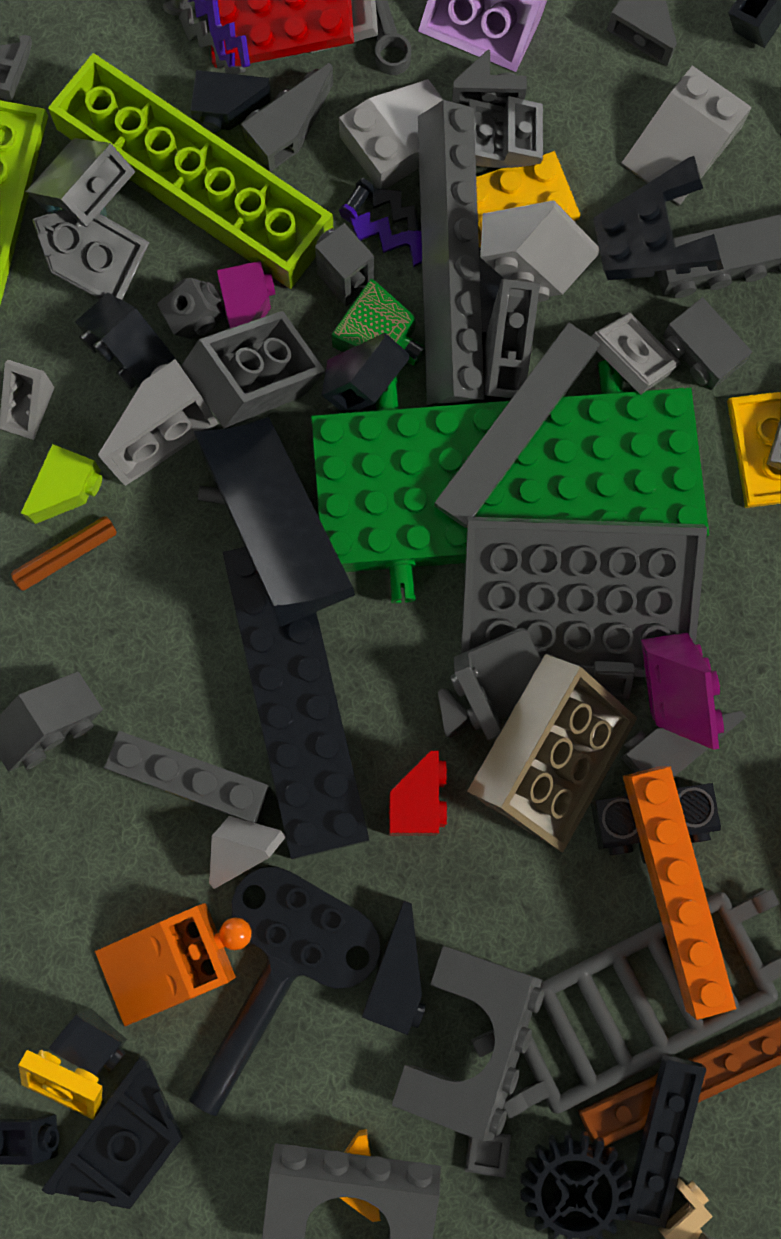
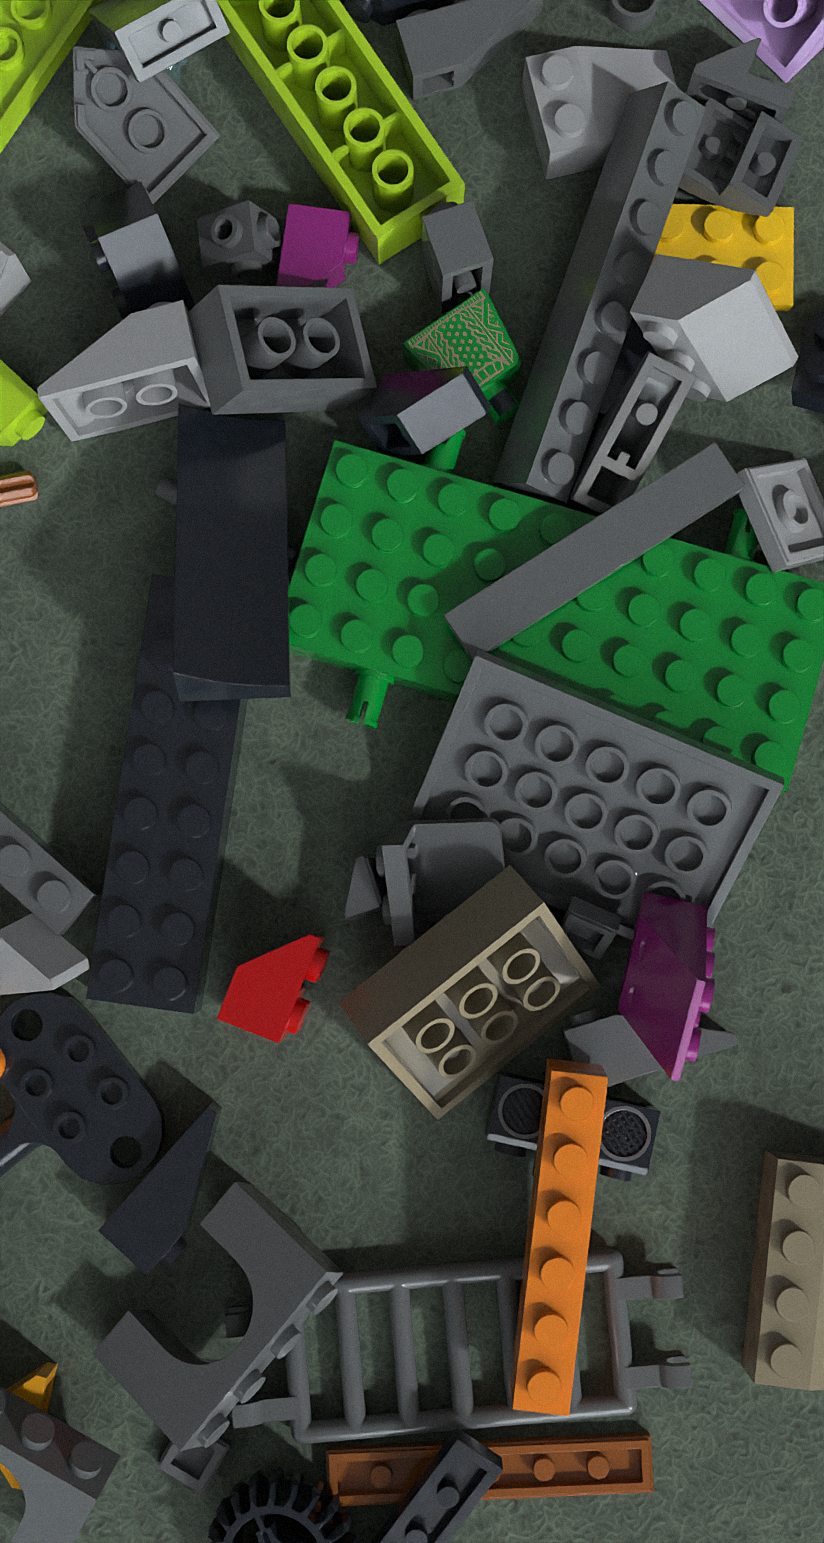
camera: 25 degrees right, 5 degrees up
(364, 229) = (506, 221): piece -> none

